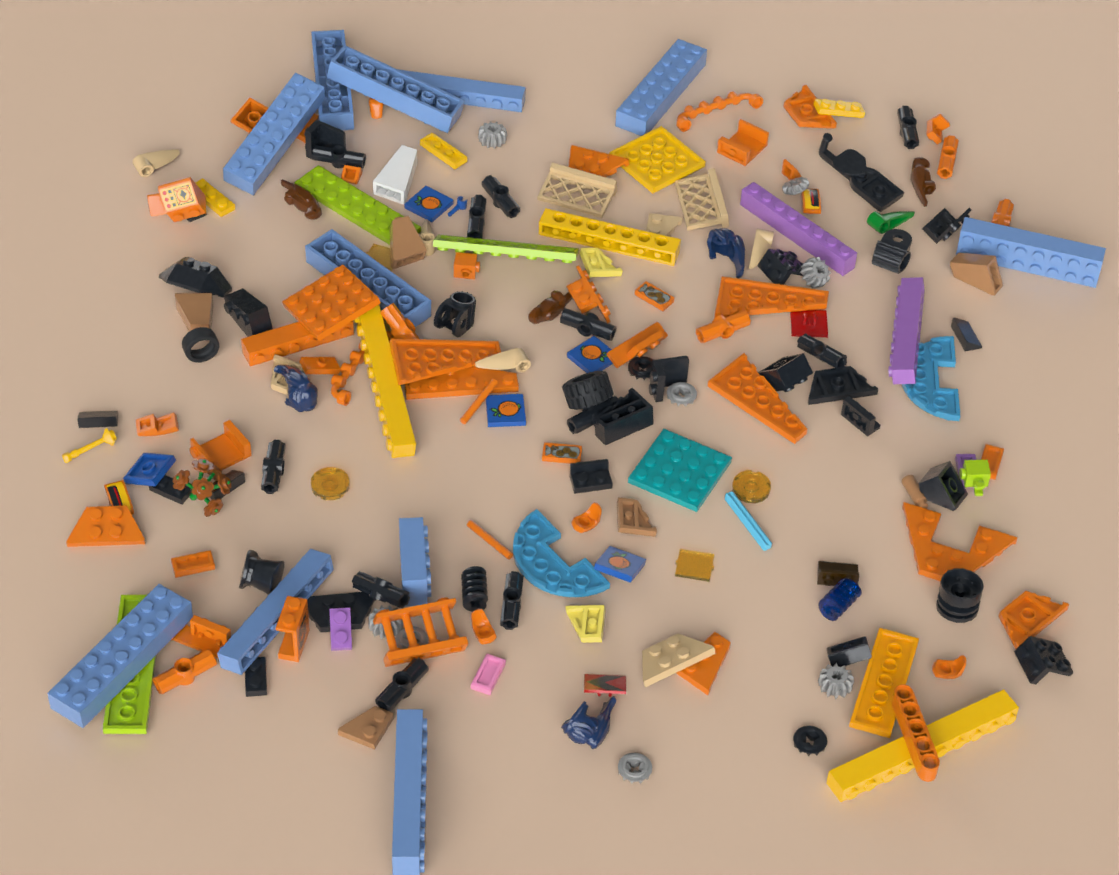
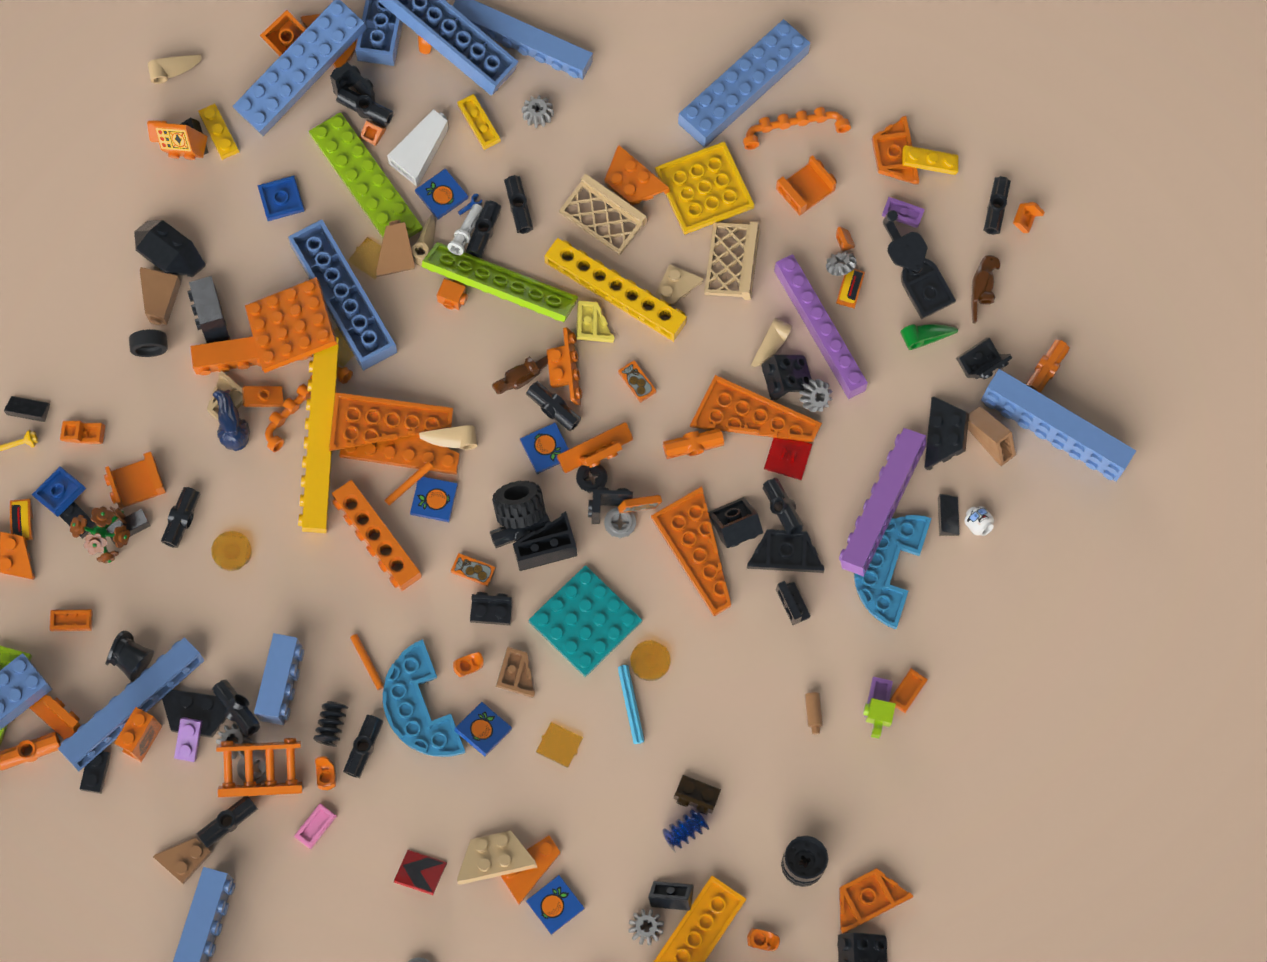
camera: 15 degrees right, 25 degrees up
(285, 232) = (281, 198): none -> blue tile
(302, 200) = (309, 161): reddish brown animal -> none
(400, 326) = (354, 373): orange piece -> none
(459, 306) = (412, 358): black piece -> none
(461, 222) = (462, 235): none -> white pin
(463, 443) = (350, 493): none -> orange brick
(587, 621) = (429, 791): light yellow wing -> none
(587, 729) = (392, 924): dark blue hair -> none
(695, 373) = (639, 503): none -> orange tile
(727, 244) = (739, 333): dark blue hair -> none
(742, 685) = (555, 905): none -> blue tile
(836, 146) = (907, 213): none -> medium lavender plate
(892, 254) = (906, 390): black piece -> none
(937, 559) = (812, 808): orange wing -> none
(939, 277) = (945, 432): none -> black wing
(943, 486) = (841, 718): black slope -> none
(947, 157) = (1019, 268): orange piece -> none
(995, 330) = (979, 520): none -> white head

